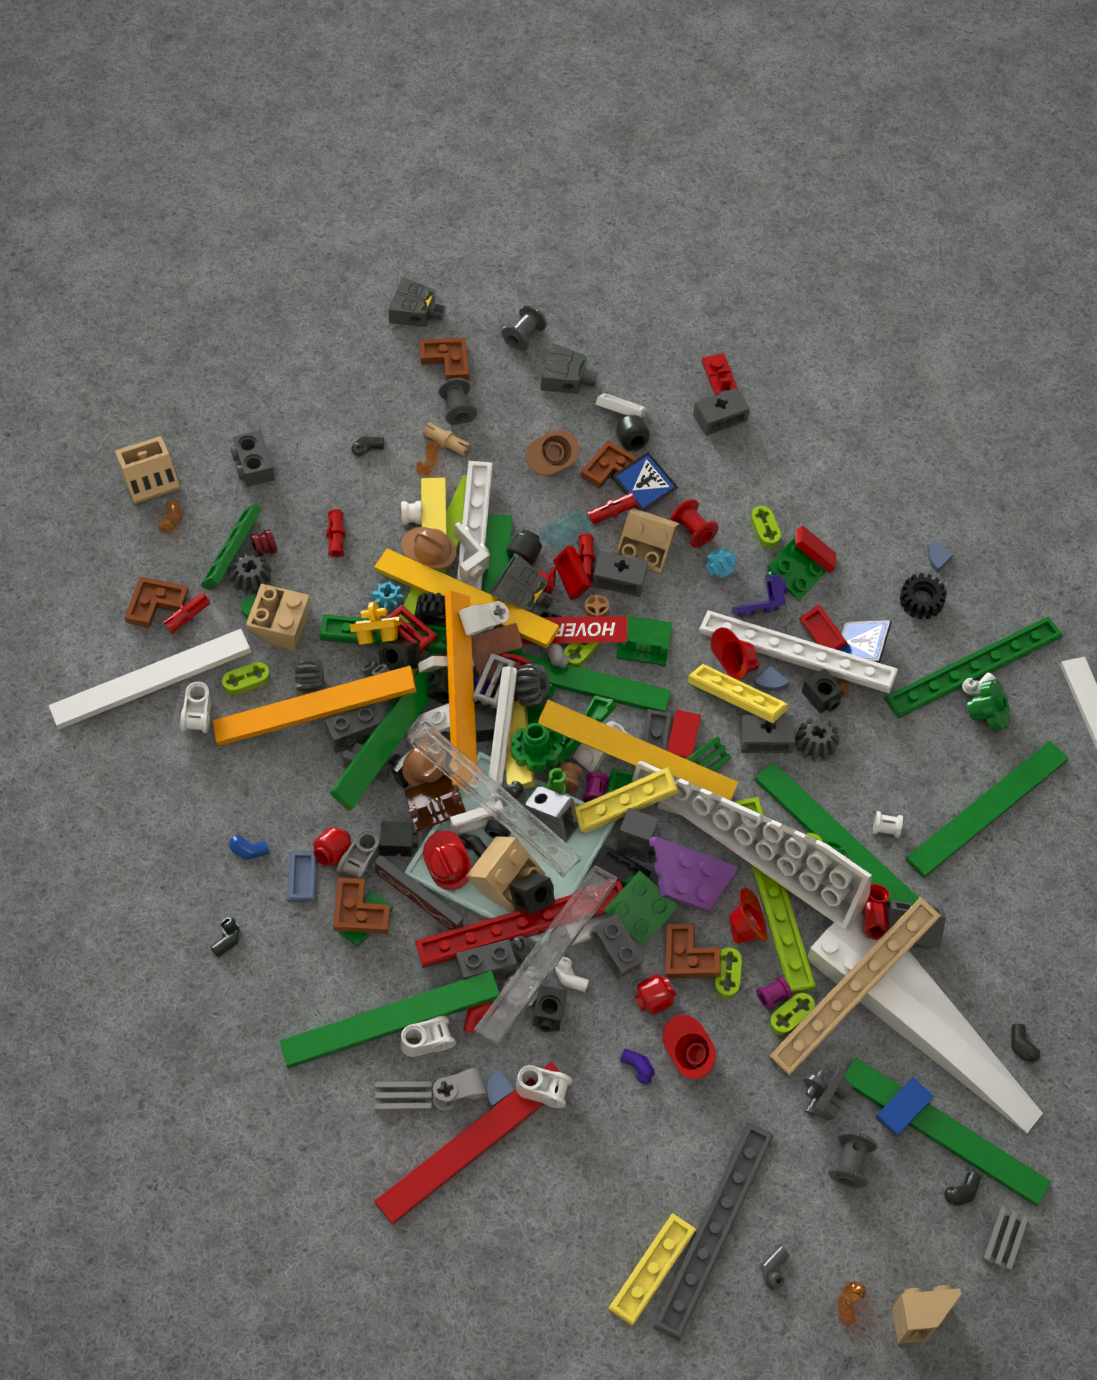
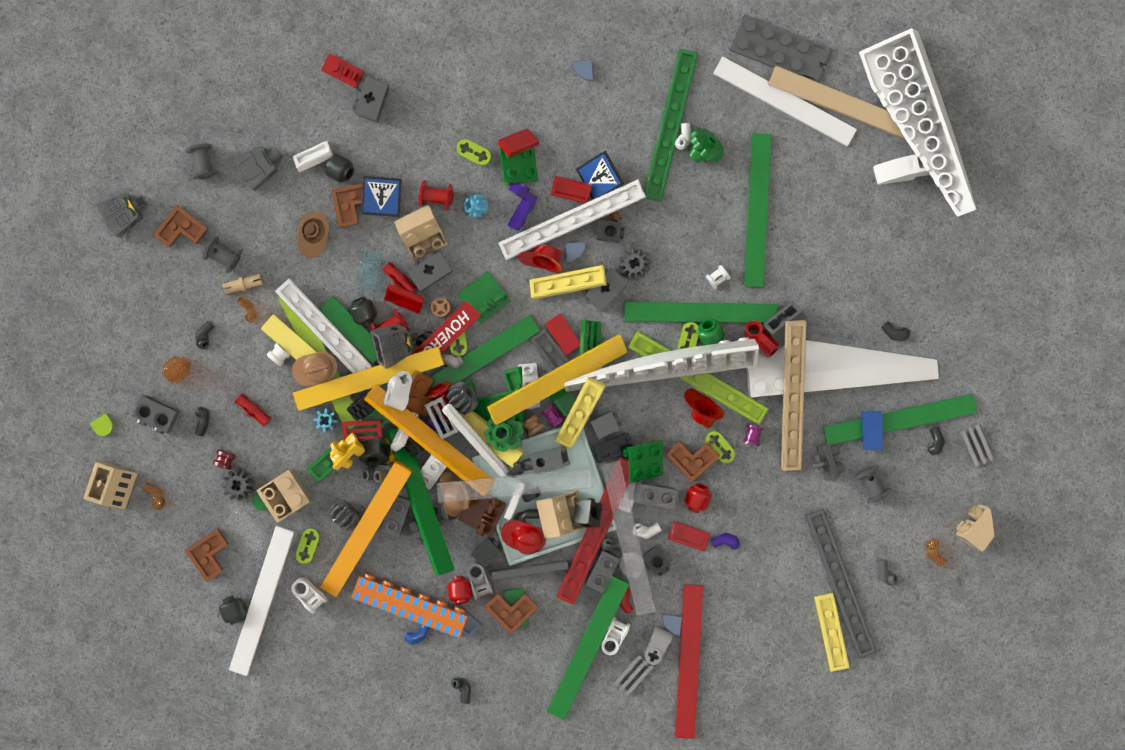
camera: 40 degrees left, 30 degrees up
(116, 660) = (232, 610): none -> pearl dark grey head
(186, 612) = (234, 544): red axle -> none
(200, 429) = (103, 425): none -> lime tile
(231, 546) = (209, 480): green tile -> none
(273, 814) = (410, 605): none -> orange brick
(289, 499) = (203, 422): none -> pearl dark grey arm
(312, 444) = (176, 369): none -> clear orange head
(479, 561) = (354, 356): white bracket -> none
(545, 1086) = (697, 603): white piece -> none
(556, 781) = (543, 445): bright green pin -> none
(606, 1023) = (689, 536): none -> red tile
(612, 508) = (386, 223): red pin -> none
(689, 1043) = (744, 510): red piece -> none
(690, 875) = (653, 418): medium lavender wing -> none
(788, 1009) = (776, 436): lime beam -> none
(923, 584) = (602, 97): black tyre -> none

